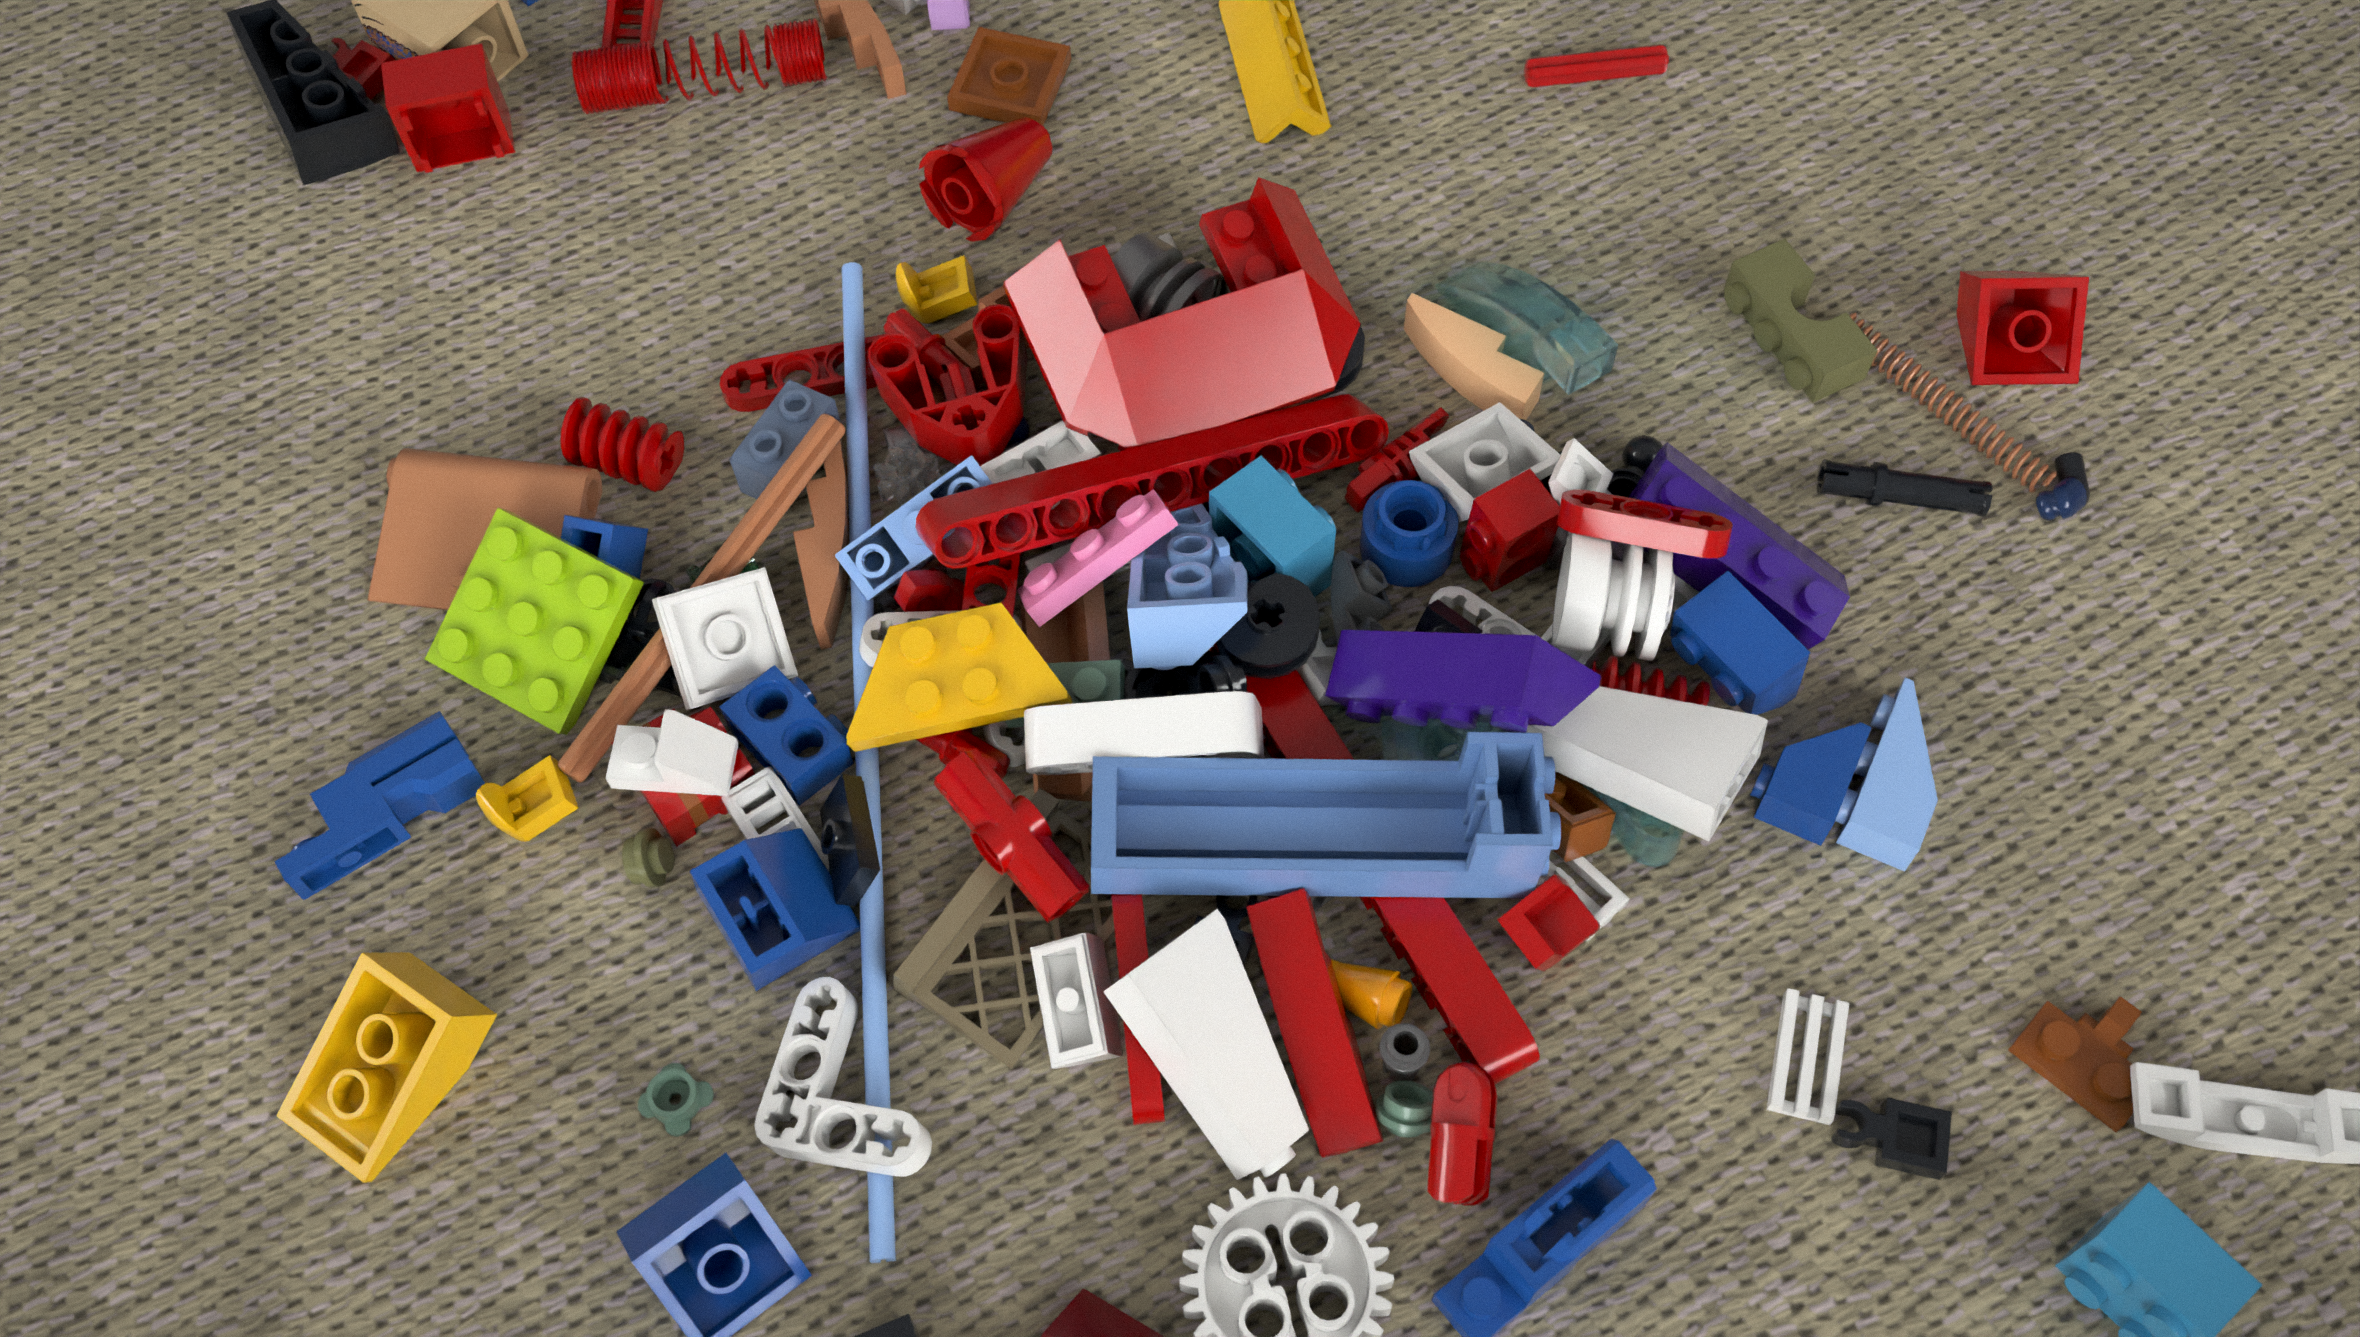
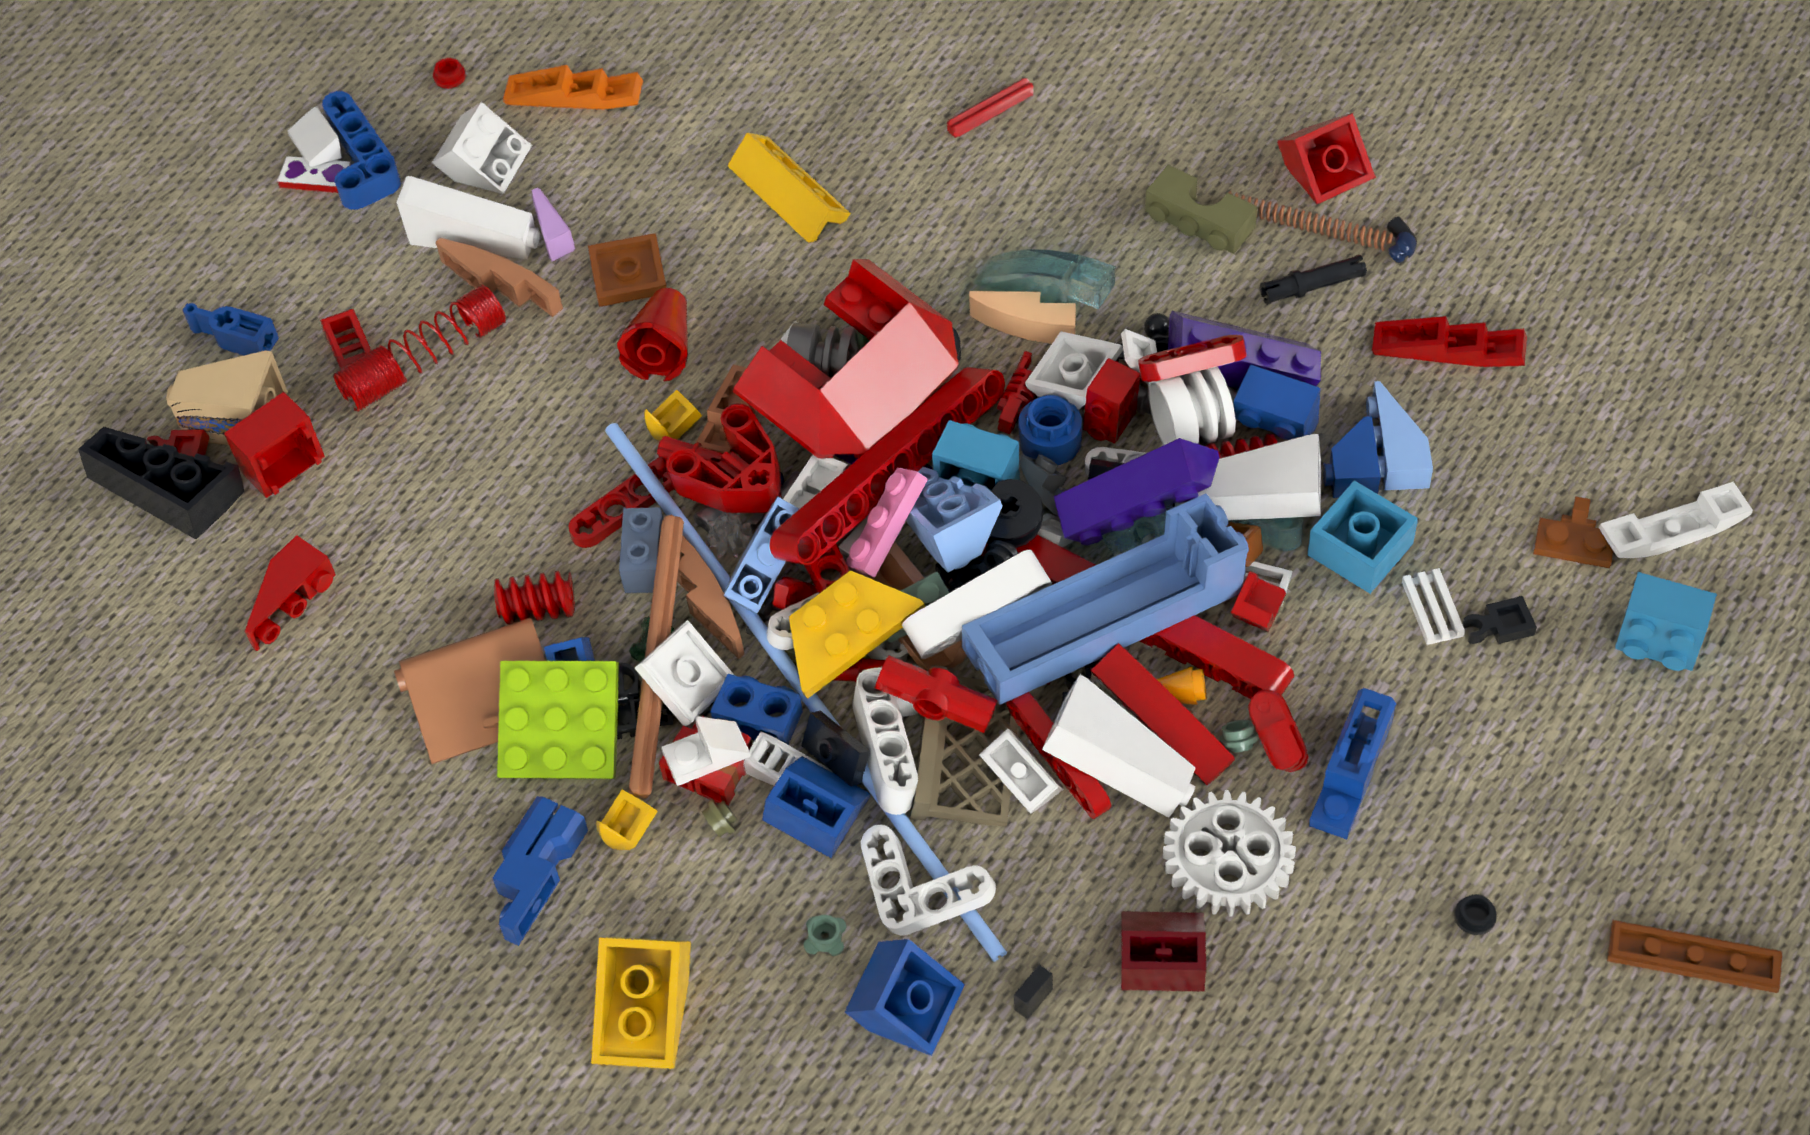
camera: 25 degrees left, 5 degrees down
(371, 269) = (292, 569): none -> red slope
(915, 865) = (884, 734): none -> white beam
(1406, 1040) = (1221, 704): flat silver pin -> none
(1757, 900) = (1362, 536): none -> dark azure brick
(2060, 675) = (1454, 344): none -> red slope

